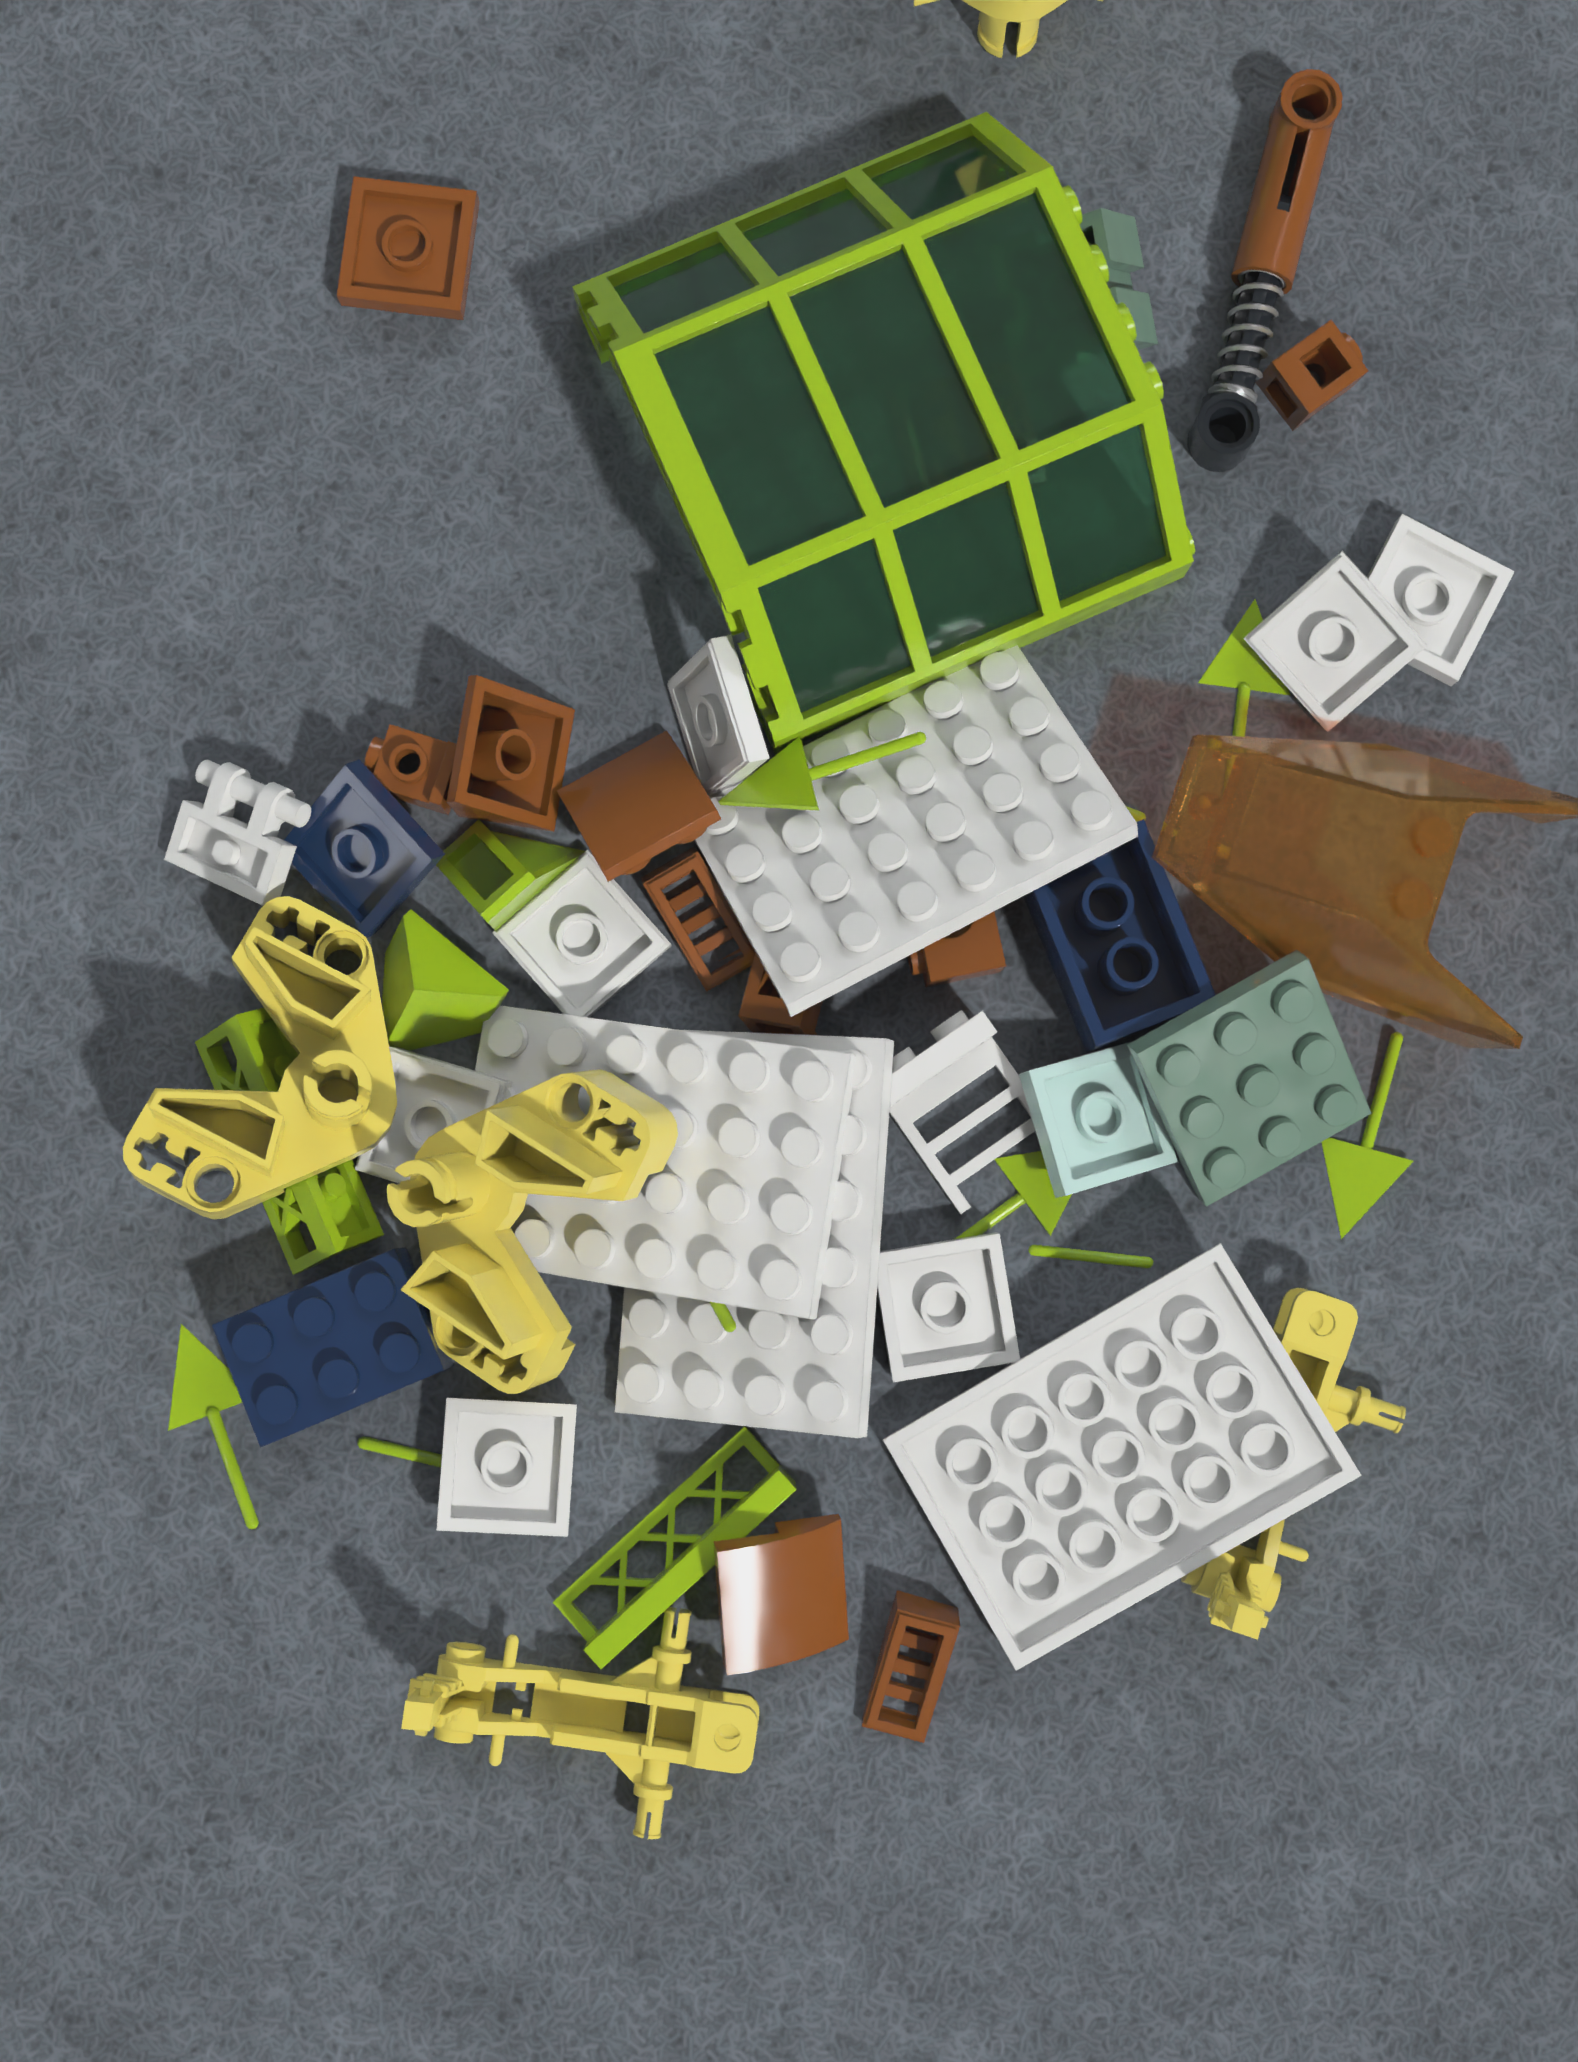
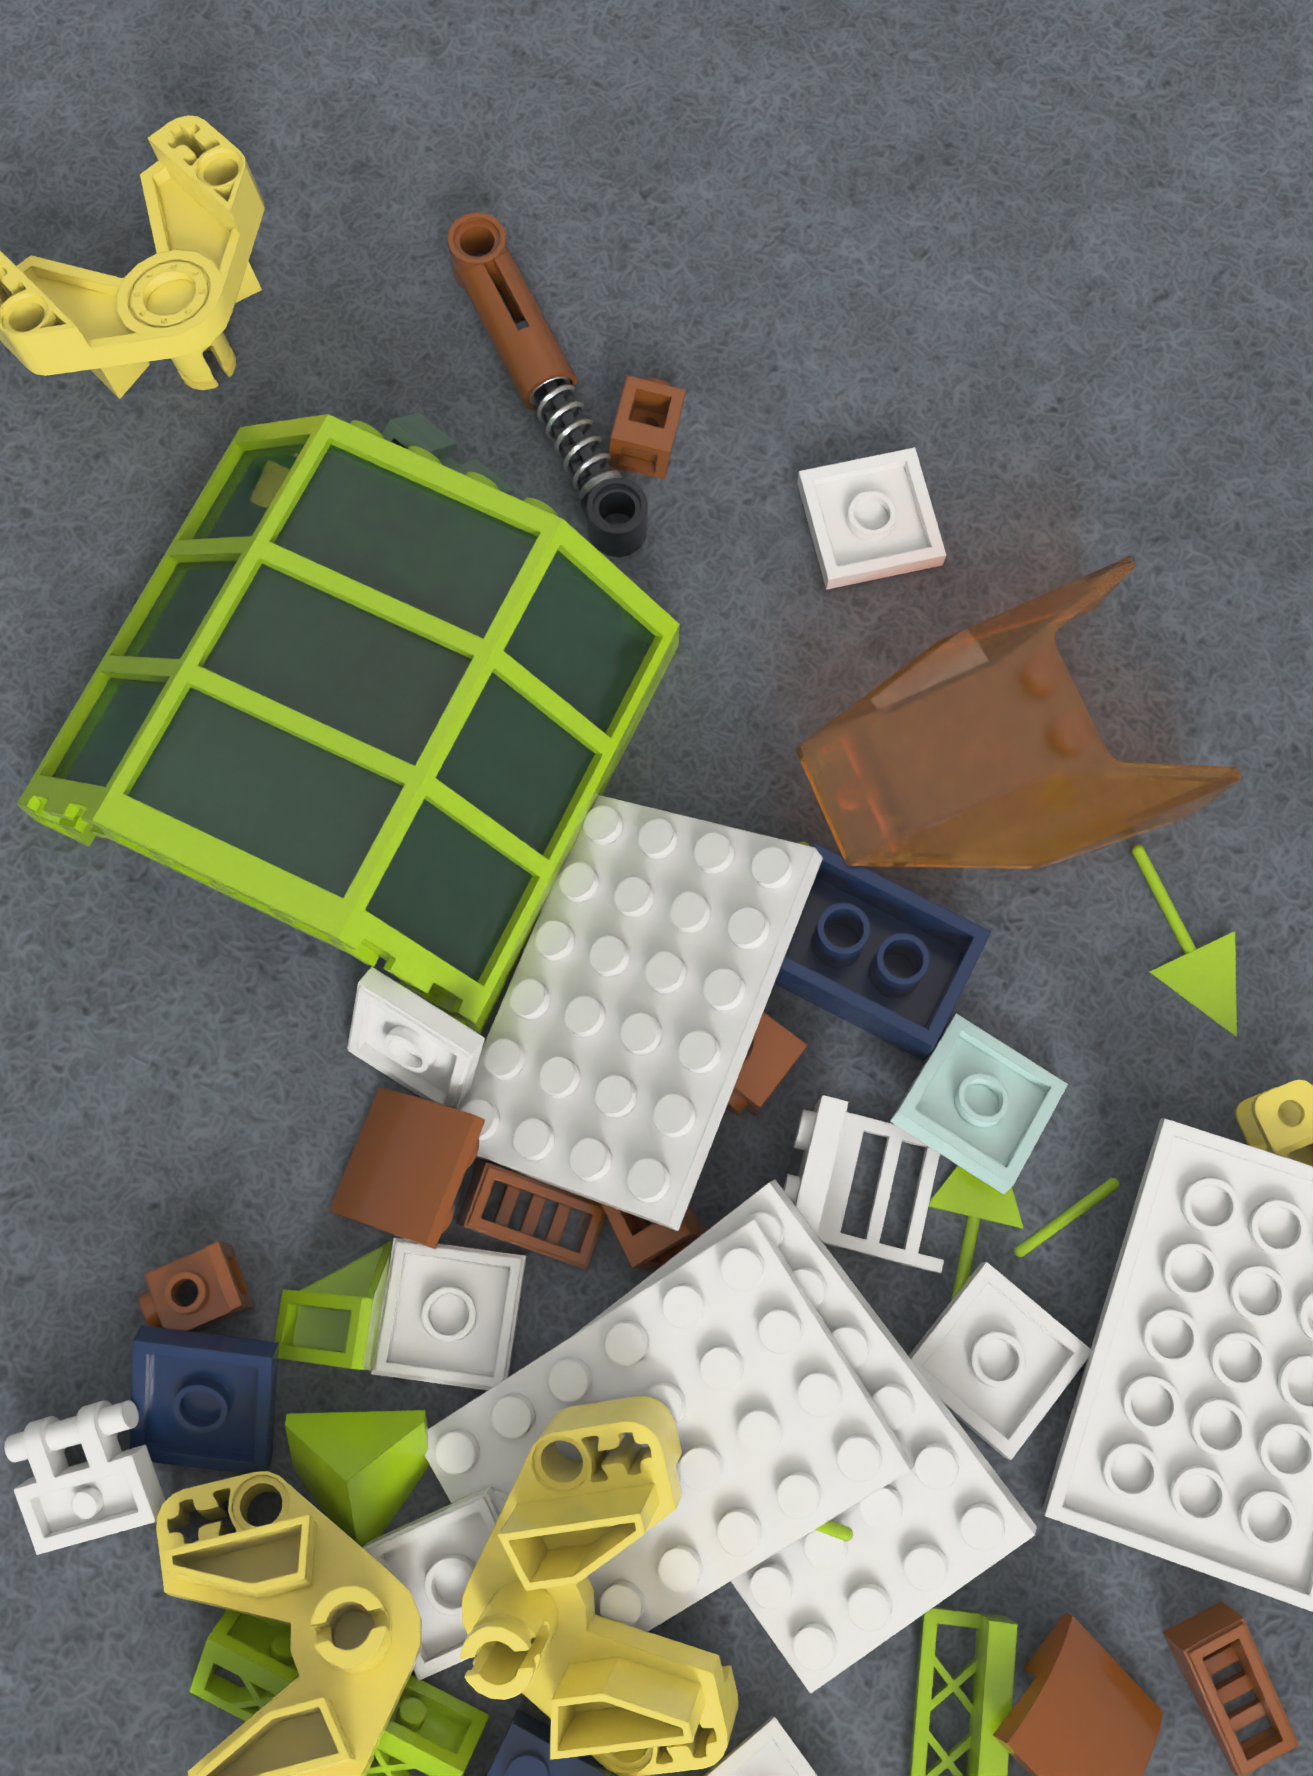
camera: 40 degrees left, 10 degrees down
(509, 756) = (267, 1216): dark orange slope -> none
(787, 780) = (512, 1045): lime piece -> none
(1243, 669) = (781, 670): lime piece -> none
(1250, 1077) = (1065, 972): sand green plate -> none
(1335, 641) = (833, 599): white tile -> none

